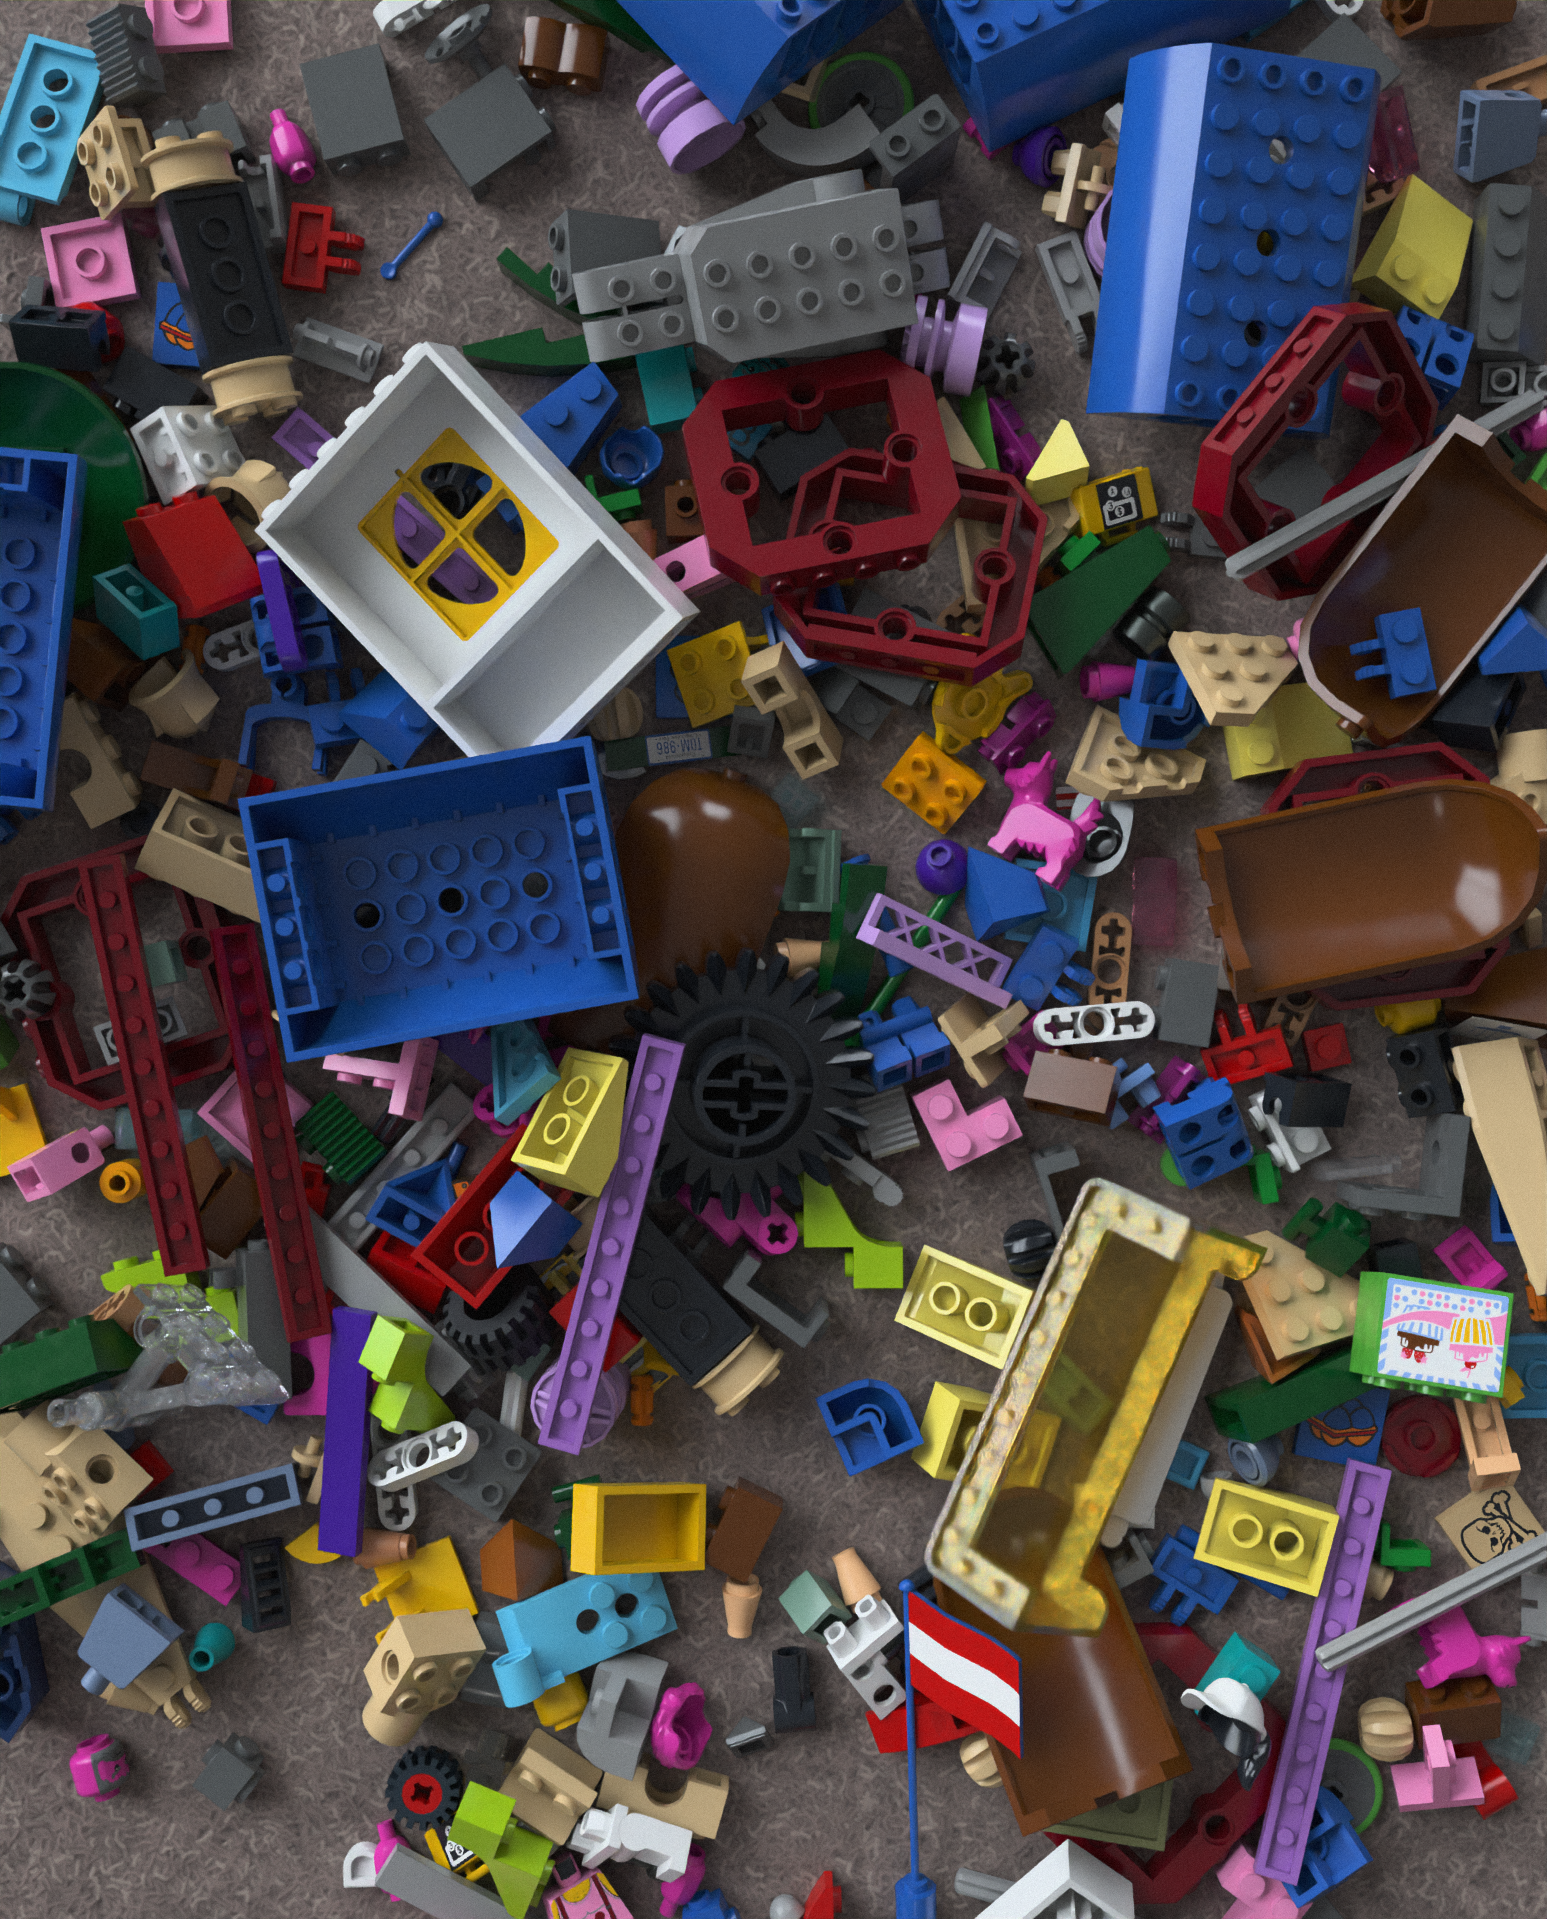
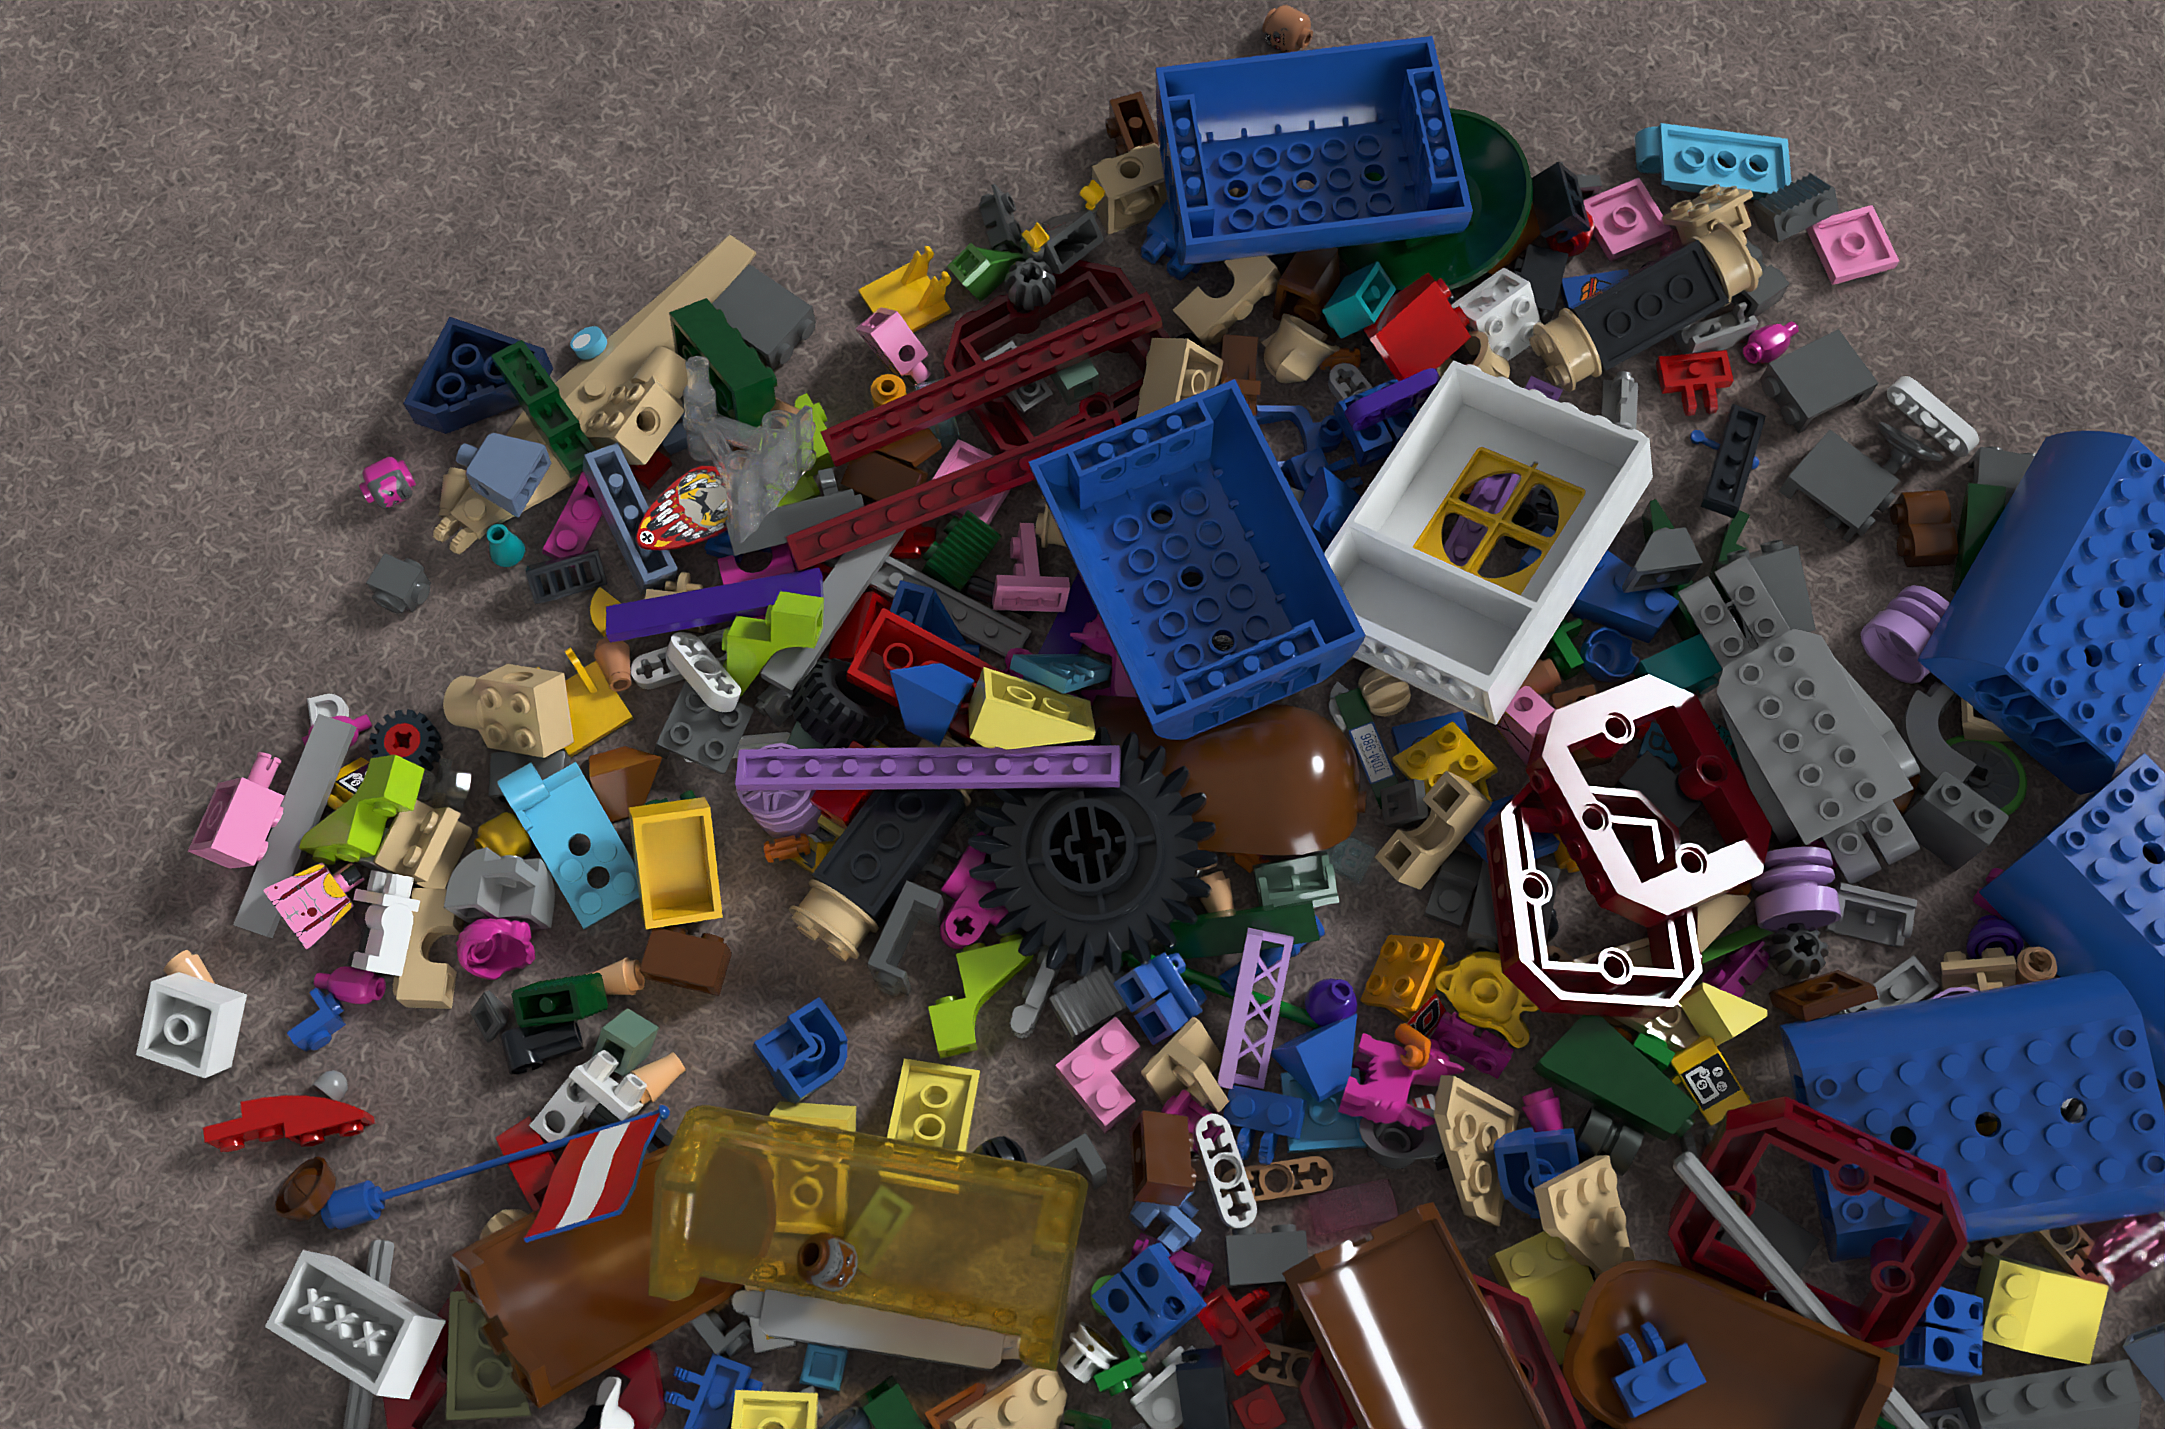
camera: 80 degrees right, 20 degrees down
(225, 1448) = (686, 512): none -> shield
(434, 242) = (1733, 461): none -> black tile
(546, 364) = (1664, 561): none -> dark grey slope
(756, 1669) = (559, 1000): none -> dark green brick
(984, 773) = (1428, 1016): none -> sticker
(1018, 793) = (1416, 1045): none -> orange arm
(1062, 355) = (1823, 995): none -> reddish brown tile
(1085, 123) = (2035, 965): none -> light nougat cone
(1103, 1451) = (827, 1262): none -> reddish brown head
(1232, 1198) = (1090, 1344): none -> white piece

